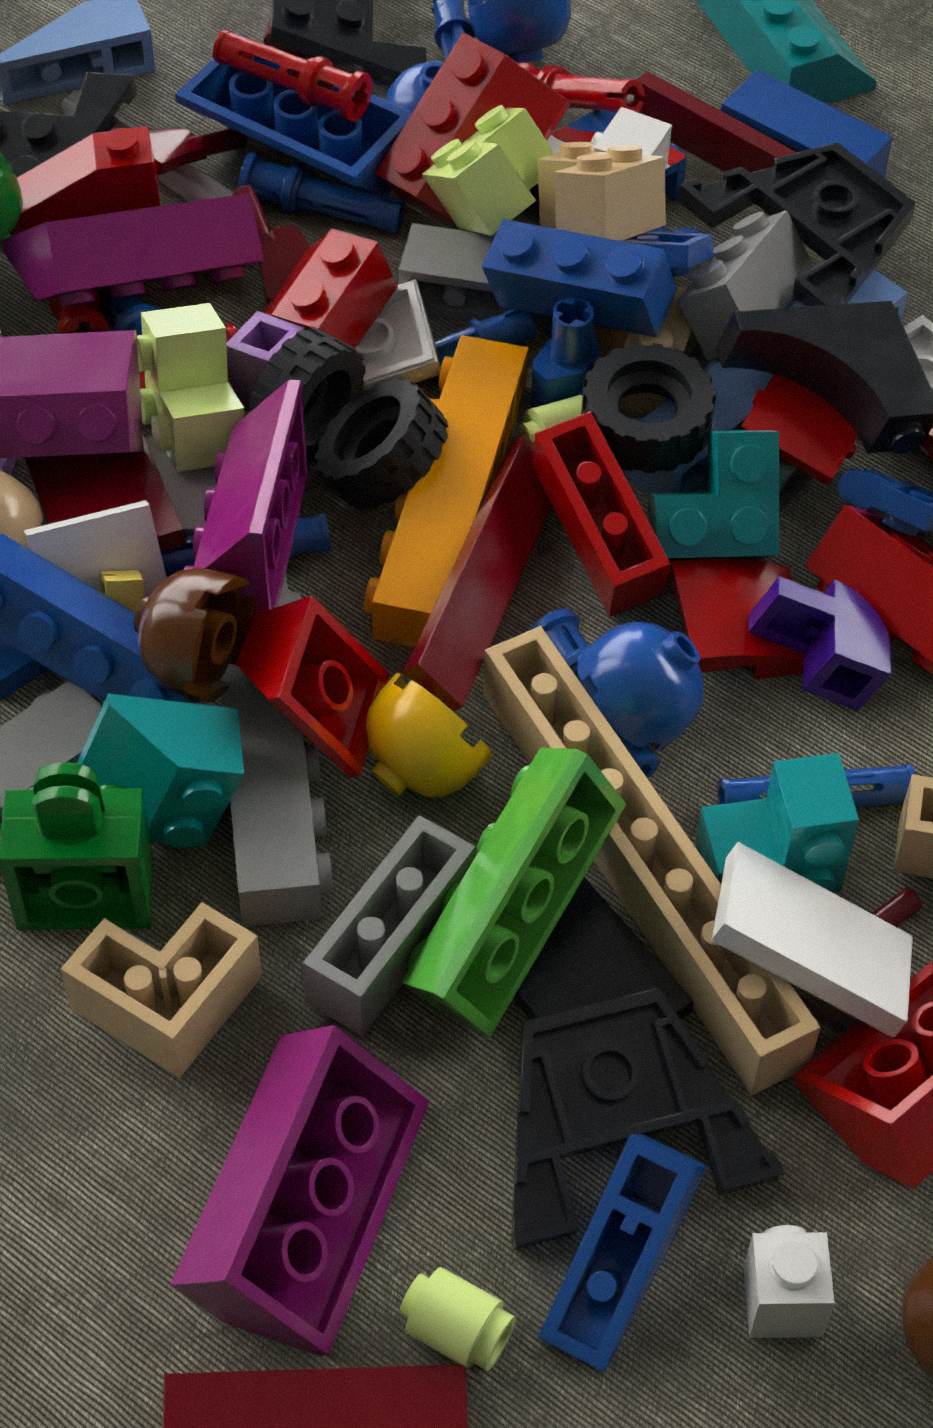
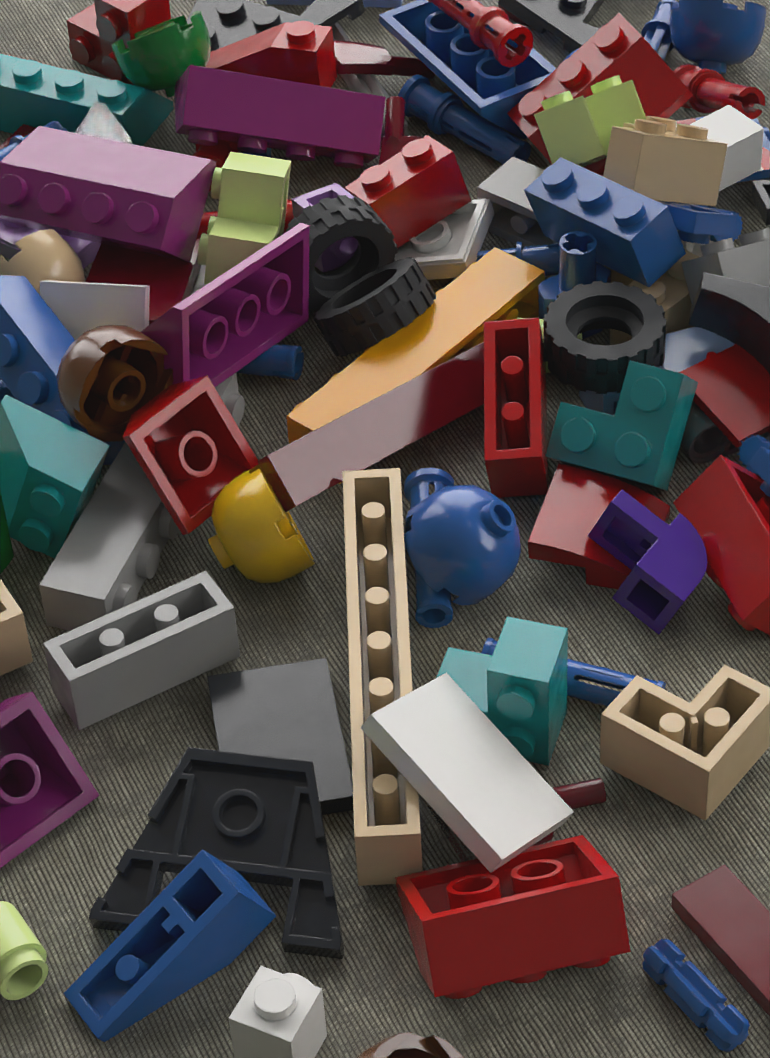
camera: 30 degrees right, 10 degrees down
(515, 888) = (243, 648): bright green slope -> none

